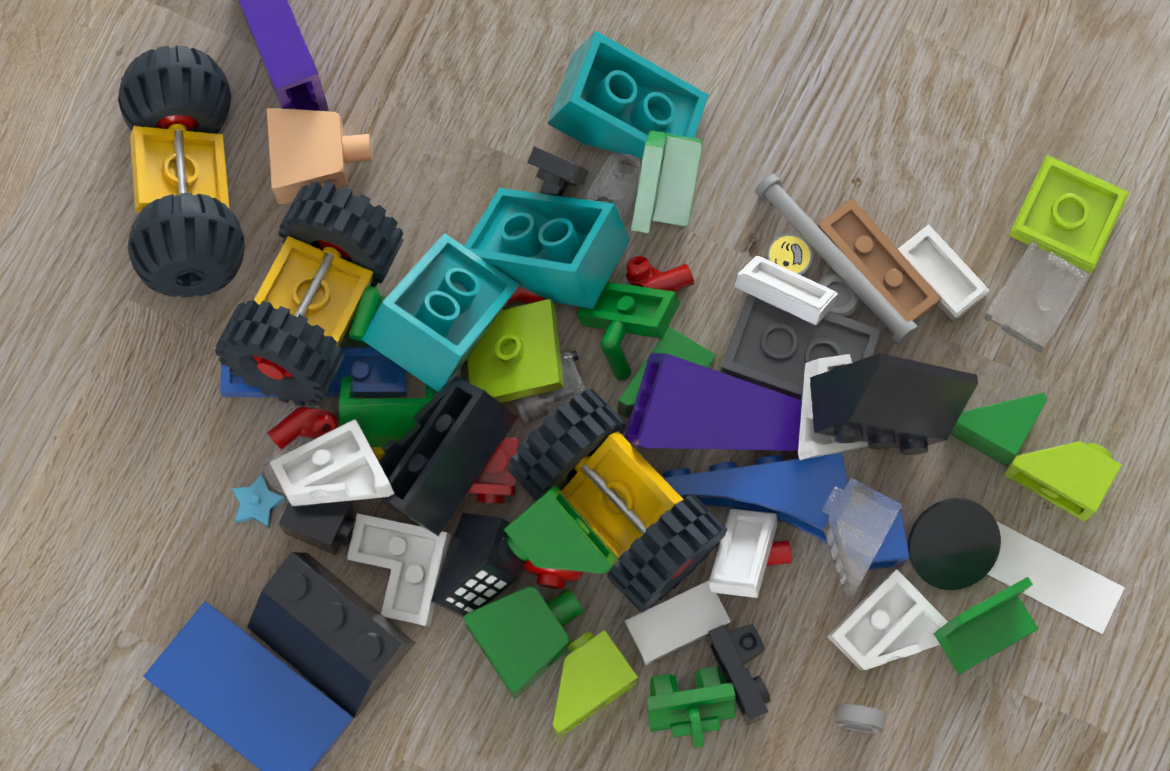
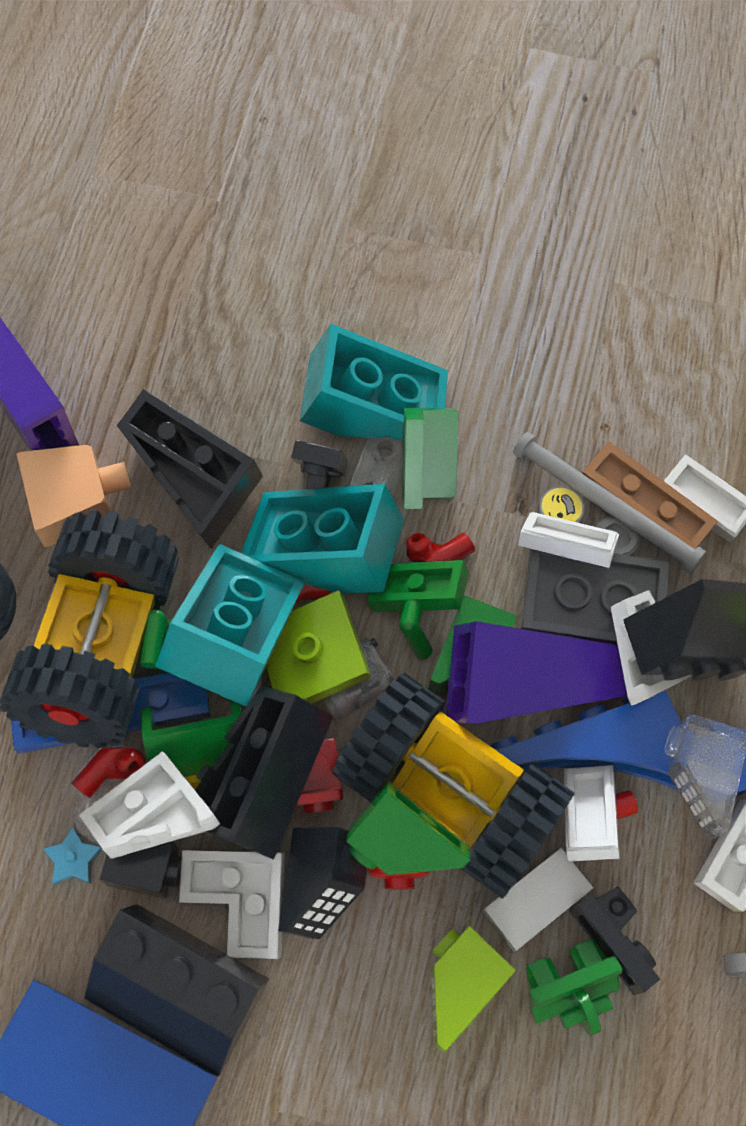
camera: 15 degrees left, 5 degrees down
(433, 150) = (191, 463): none -> black wedge
(523, 634) = (382, 946): green torso -> none

